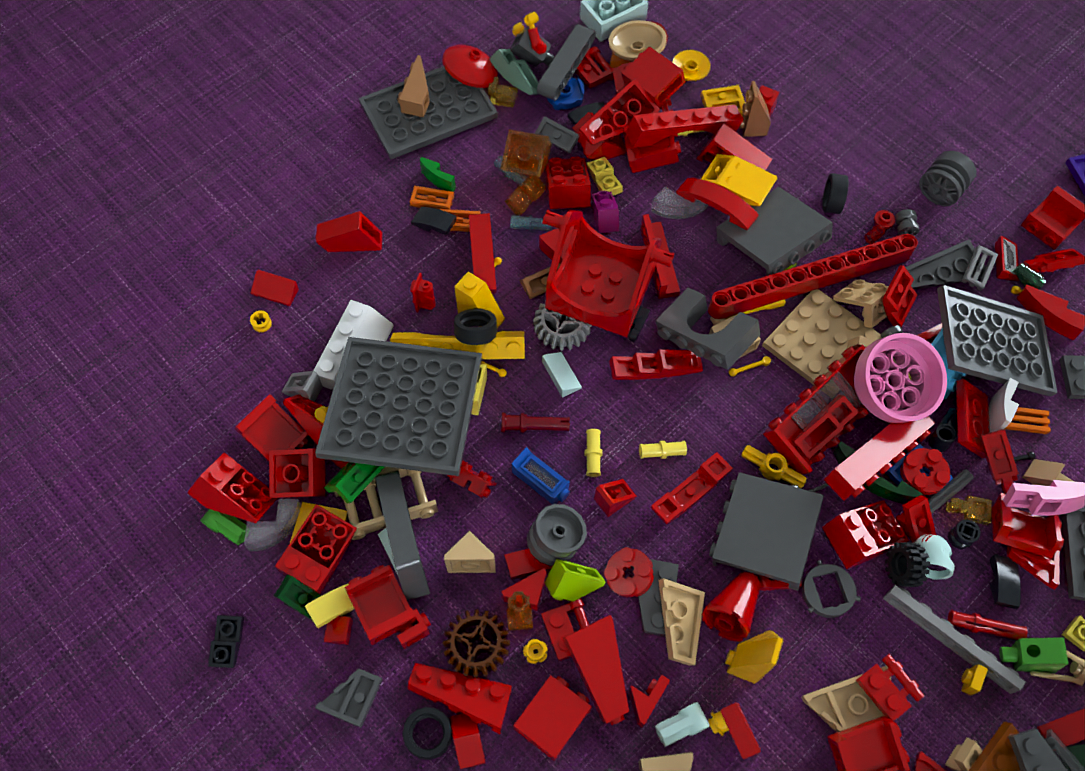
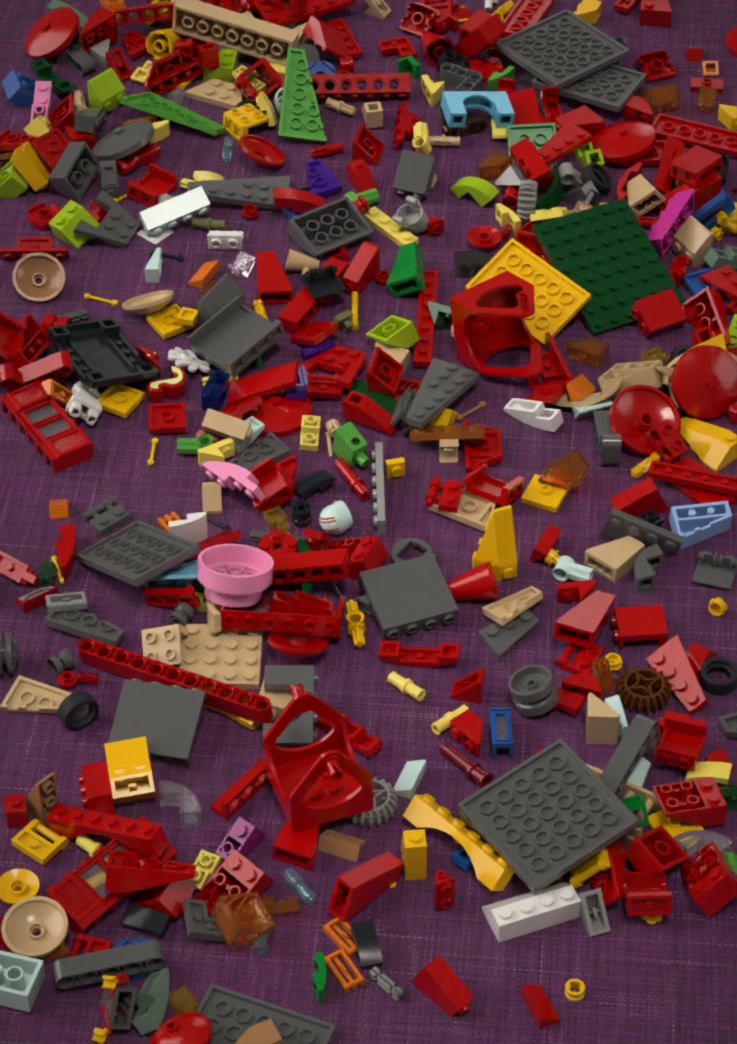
camera: 130 degrees left, 20 degrees down
(393, 213) = (386, 983): none -> dark grey axle
(471, 590) = (615, 703): none -> light aqua slope
(472, 335) = (454, 828): black tyre -> none
(563, 453) = (467, 731): none -> red slope
(572, 580) = (559, 668): lime slope -> none
(616, 573) = (519, 639): red plate -> none
(655, 74) = (82, 870): red brick -> none
(719, 198) = (167, 767): red slope -> none
(783, 378) = (297, 645): none -> red dish
(881, 186) = (33, 697): none -> tan wing
(899, 297) = (136, 625): red slope -> none
(911, 554) = (350, 518): black tyre -> none
(1000, 458) = (227, 518): red hinge -> none

